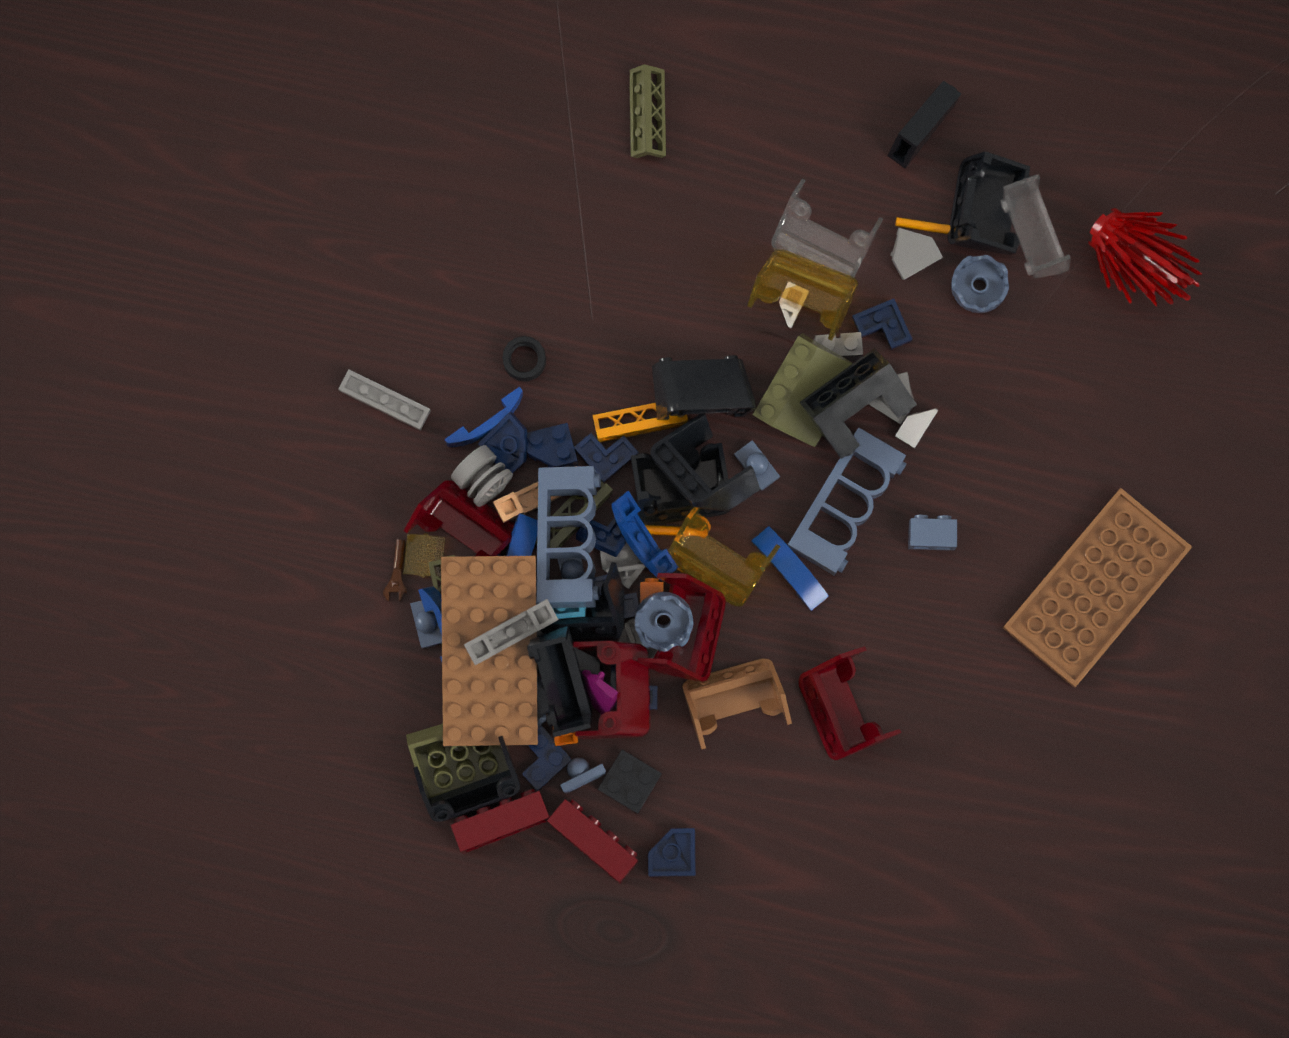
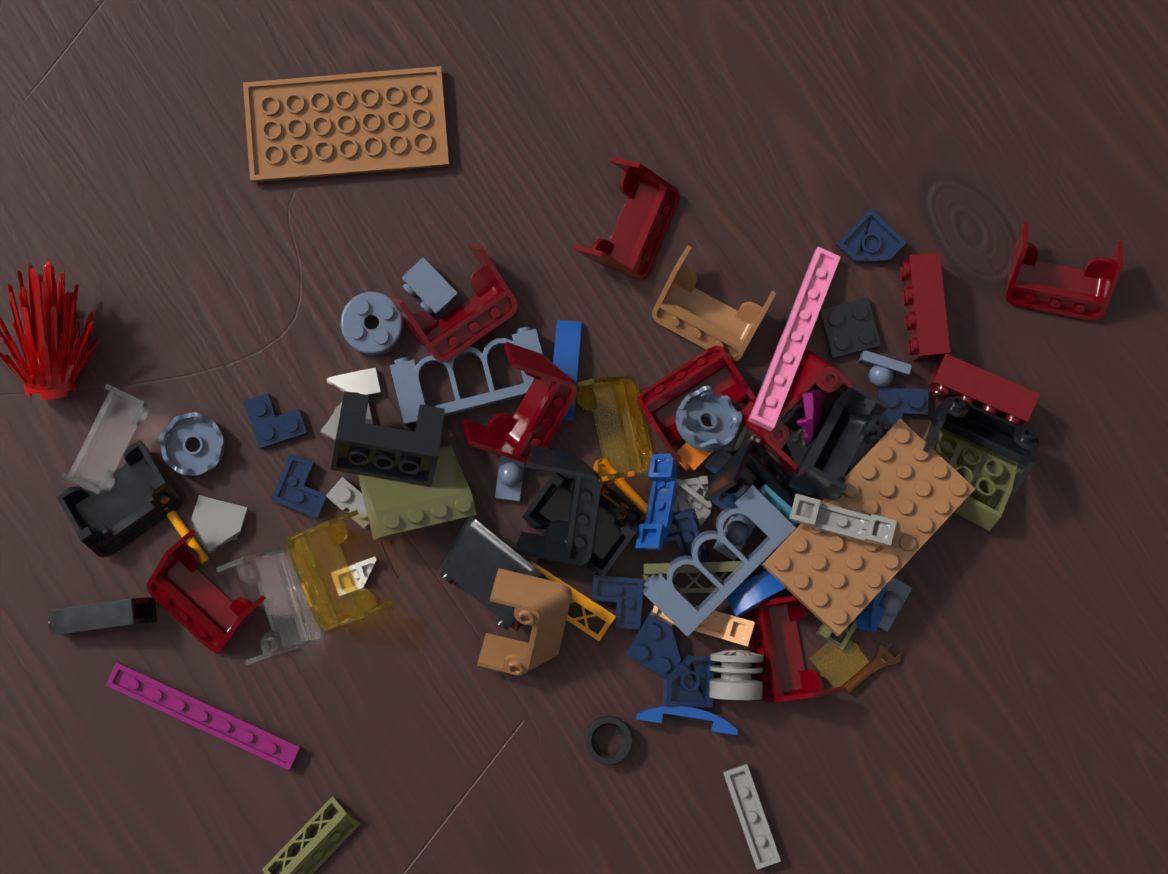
camera: 135 degrees left, 5 degrees up
(517, 948) = (1060, 287): none -> dark red windscreen
(656, 387) = (536, 603): none -> medium nougat windscreen
(659, 731) = (794, 339): none -> bright pink plate
(777, 515) = (537, 414): none -> dark red windscreen
(797, 125) = (203, 716): none -> magenta plate
(875, 191) = (196, 600): none -> dark red windscreen
(885, 532) = (468, 321): none -> dark red windscreen
(939, 488) = (374, 341): none -> sand blue plate
(942, 344) = (271, 428): none -> dark blue plate

